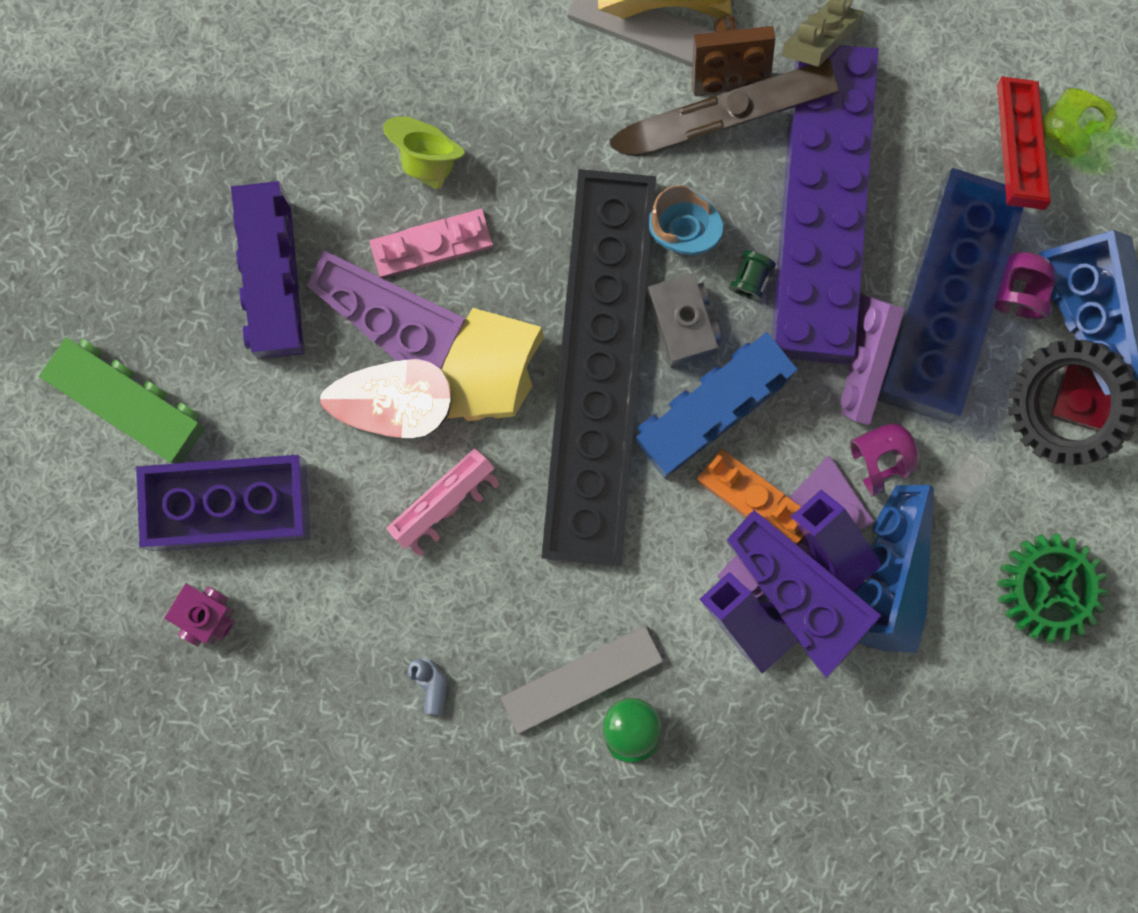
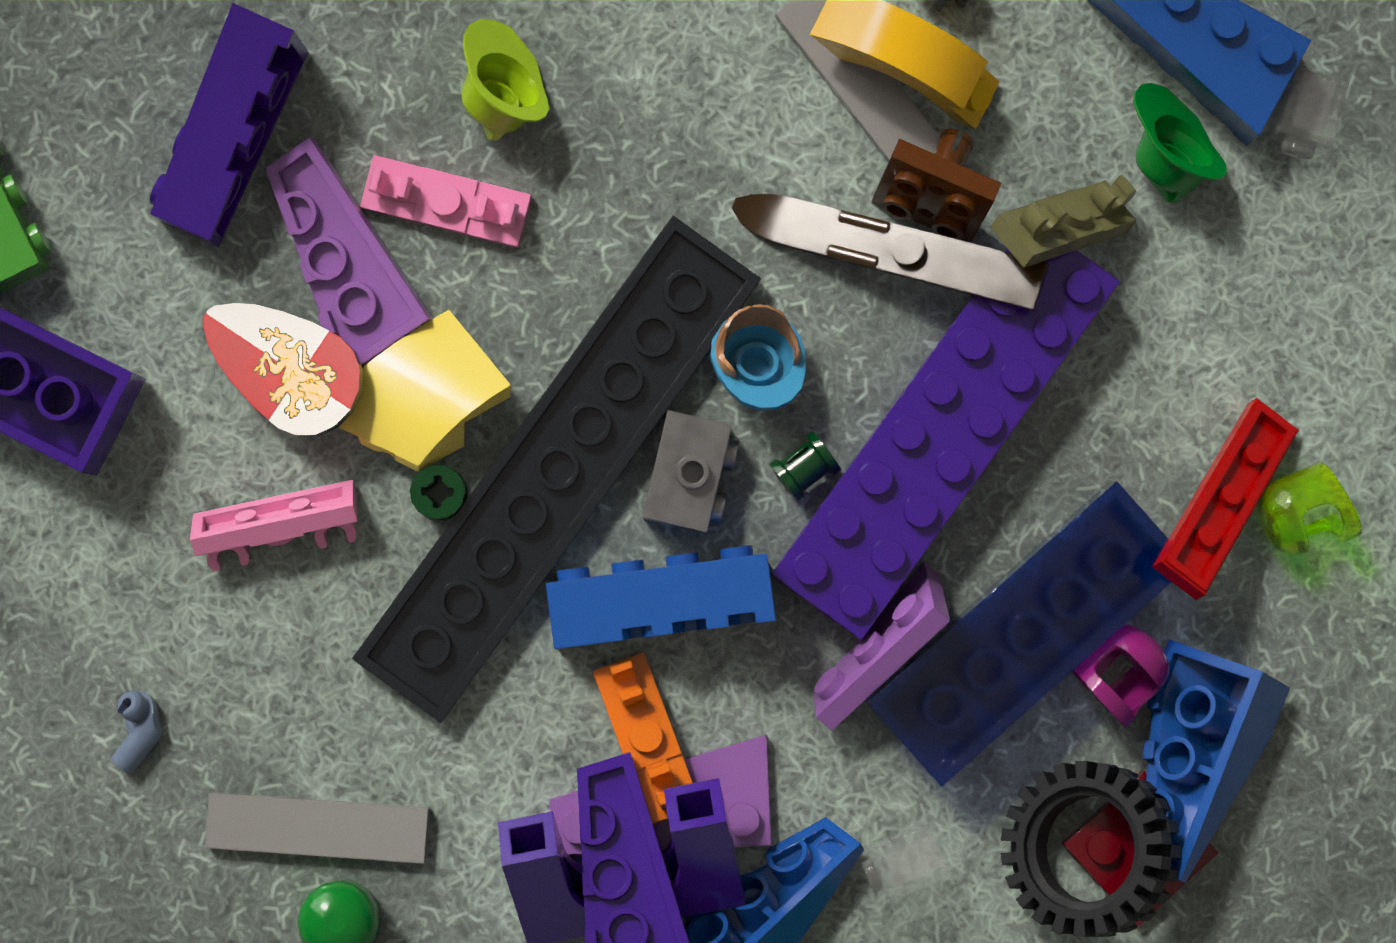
camera: 25 degrees right, 5 degrees up
(537, 429) = (448, 492): none -> dark green wheel
(879, 442) = (833, 759): magenta helmet -> none

